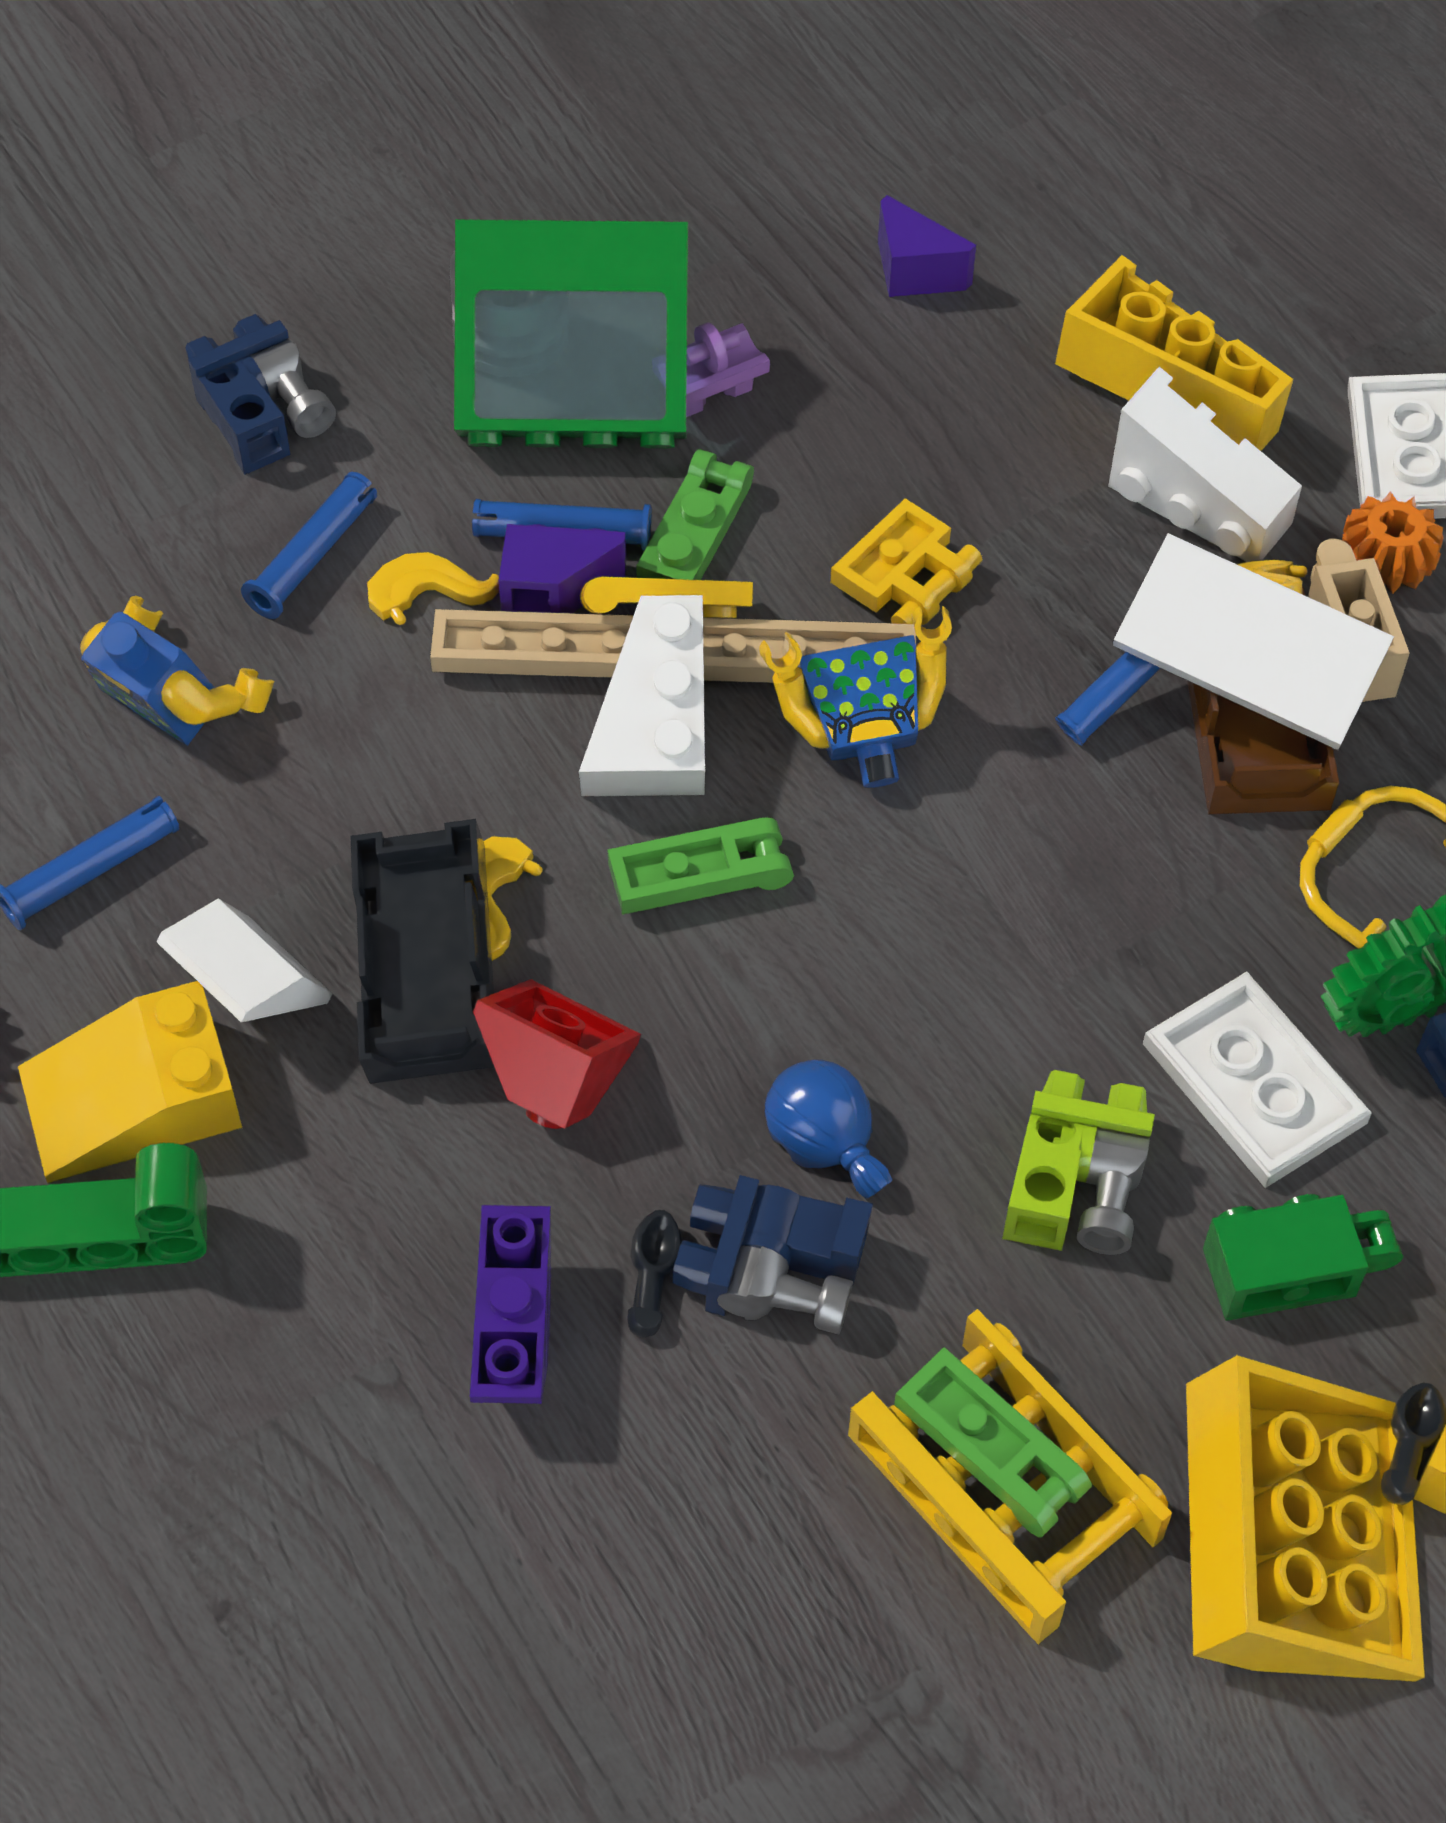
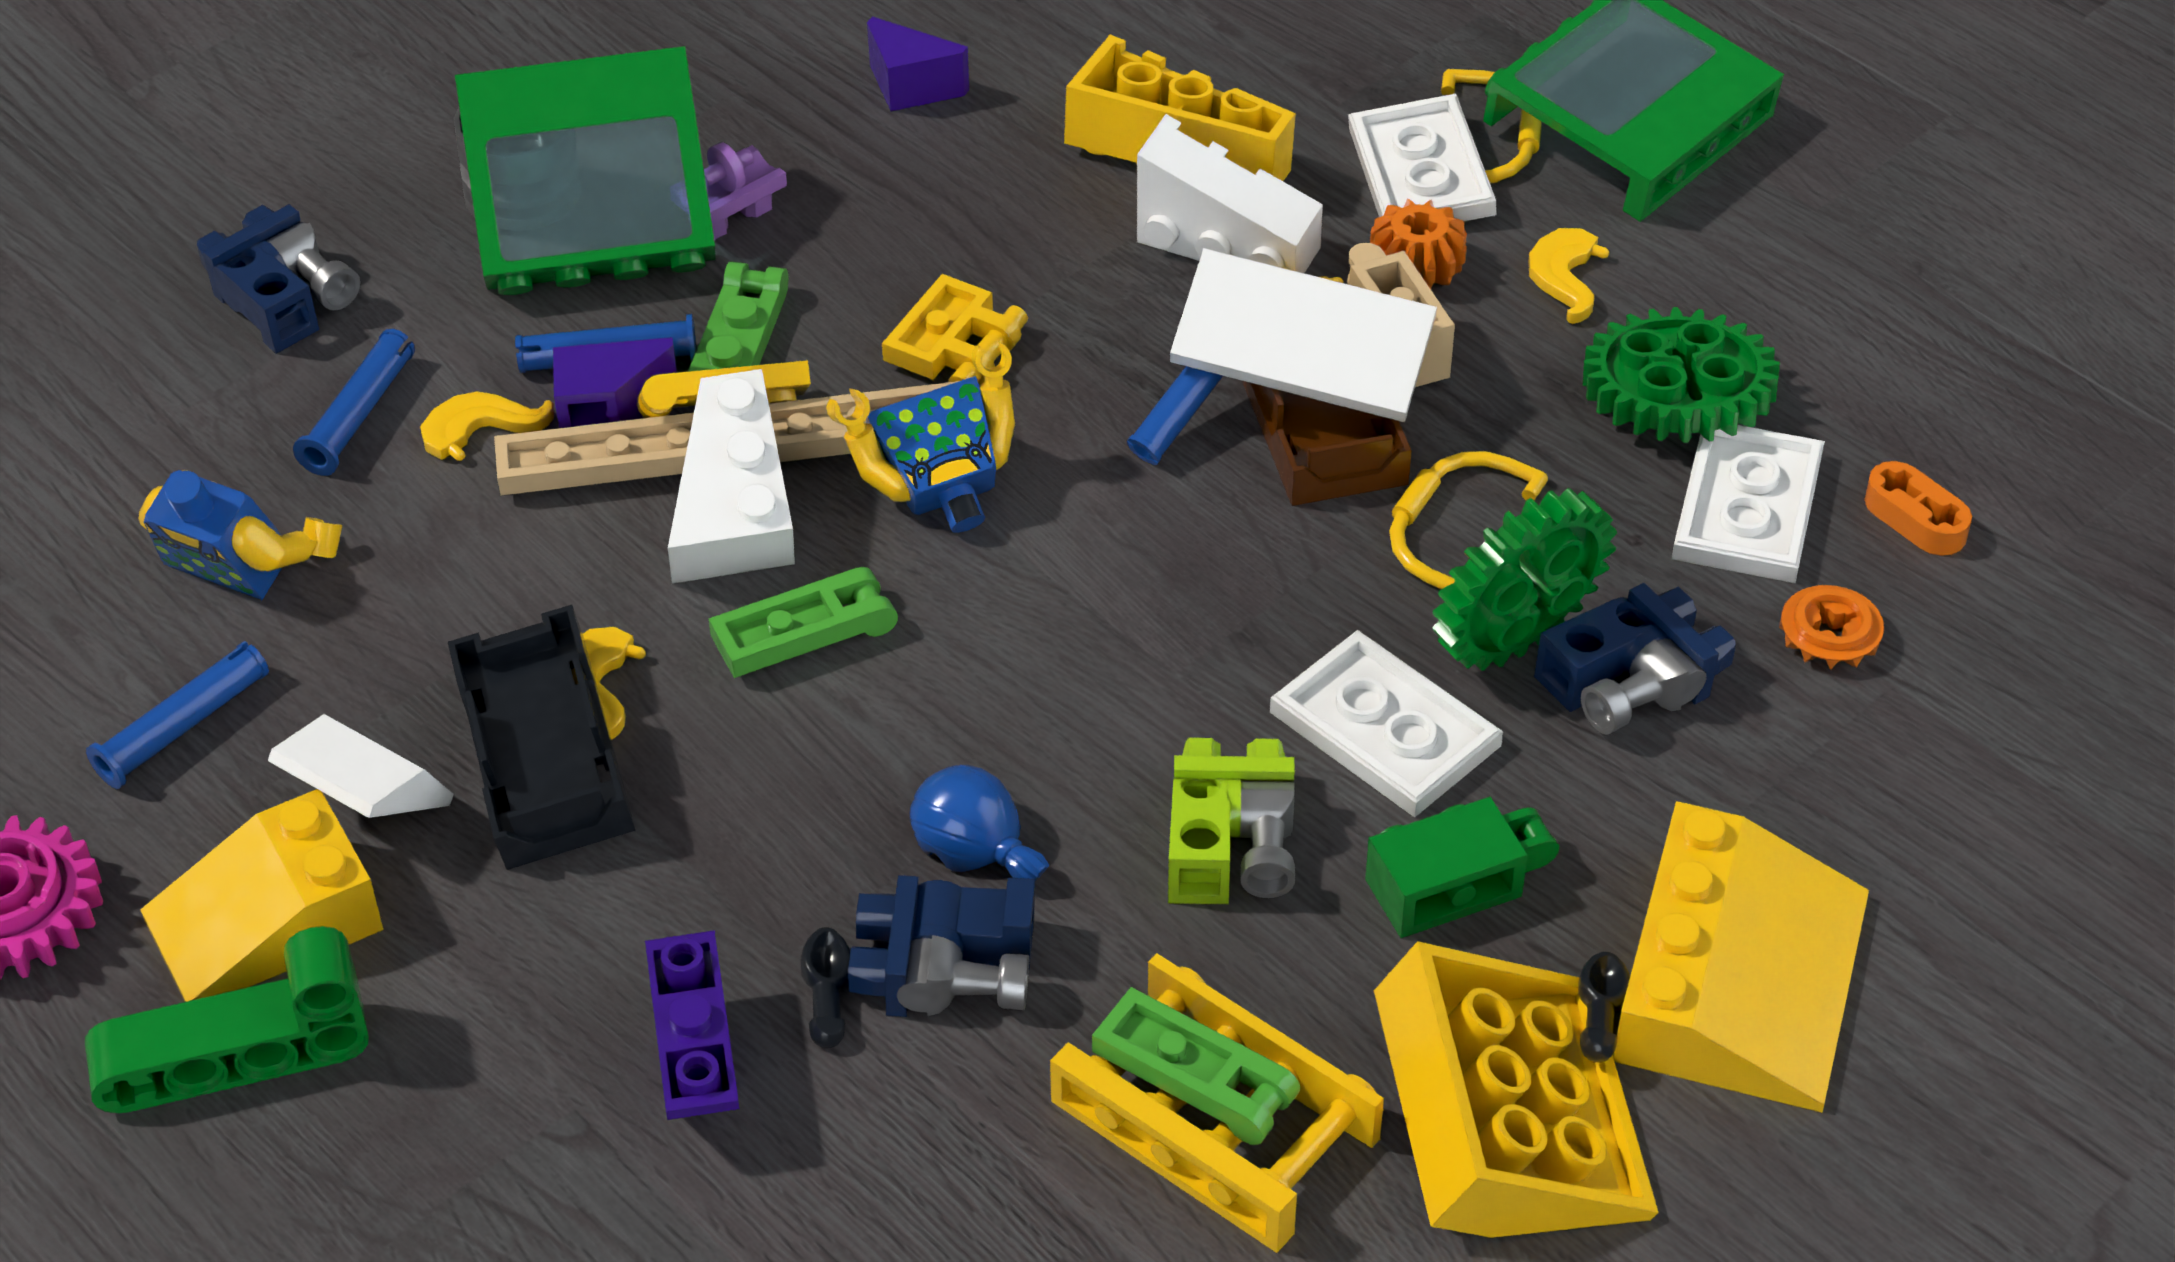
camera: 10 degrees left, 10 degrees down
(552, 1051) = (689, 806): red slope -> none

